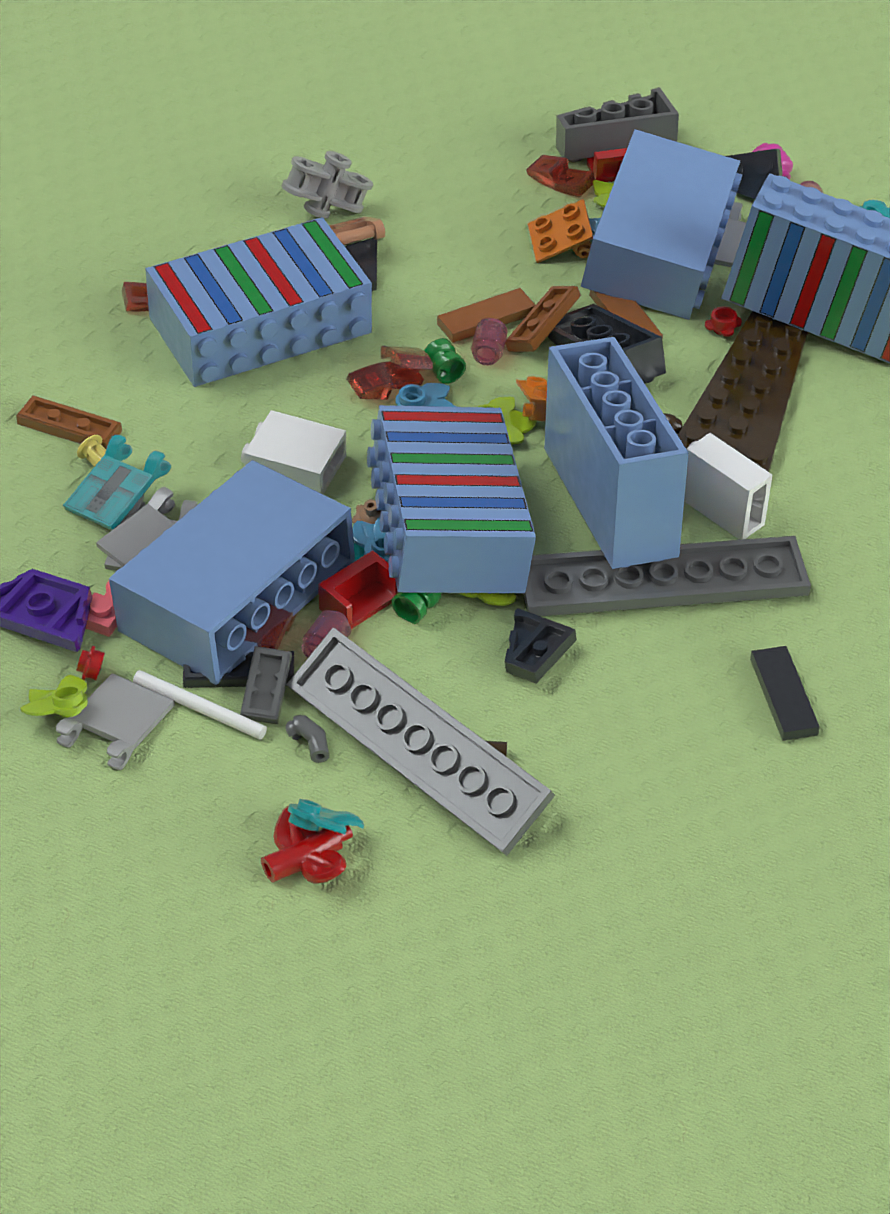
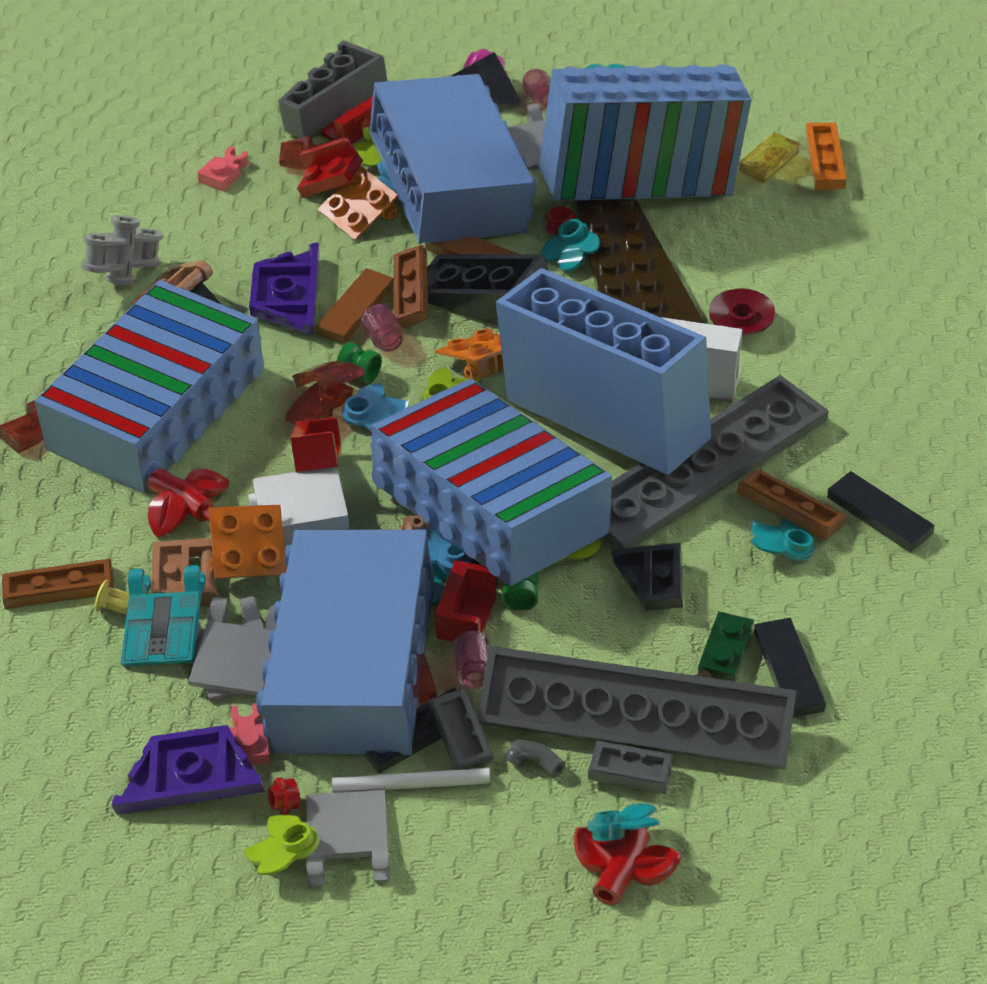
camera: 30 degrees left, 0 degrees up
(172, 445) = (170, 560): none -> nougat plate
(215, 402) = (182, 497): none -> red plant
(220, 451) = (247, 541): none -> orange hinge
(344, 406) = (316, 444): none -> red panel
(377, 784) = (630, 767): none -> dark grey plate
(441, 275) = (287, 289): none -> dark purple wing
(474, 158) = (223, 171): none -> coral plate
(545, 734) = (726, 646): none -> dark green plate
(560, 188) = (328, 167): none -> red bracket
(583, 777) = (789, 664): none -> black tile
(675, 676) = (786, 539): none -> teal plate
(707, 347) = (570, 245): none -> teal plate
(709, 648) = (791, 504): none -> dark orange tile
(811, 467) = (742, 310): none -> dark red dish

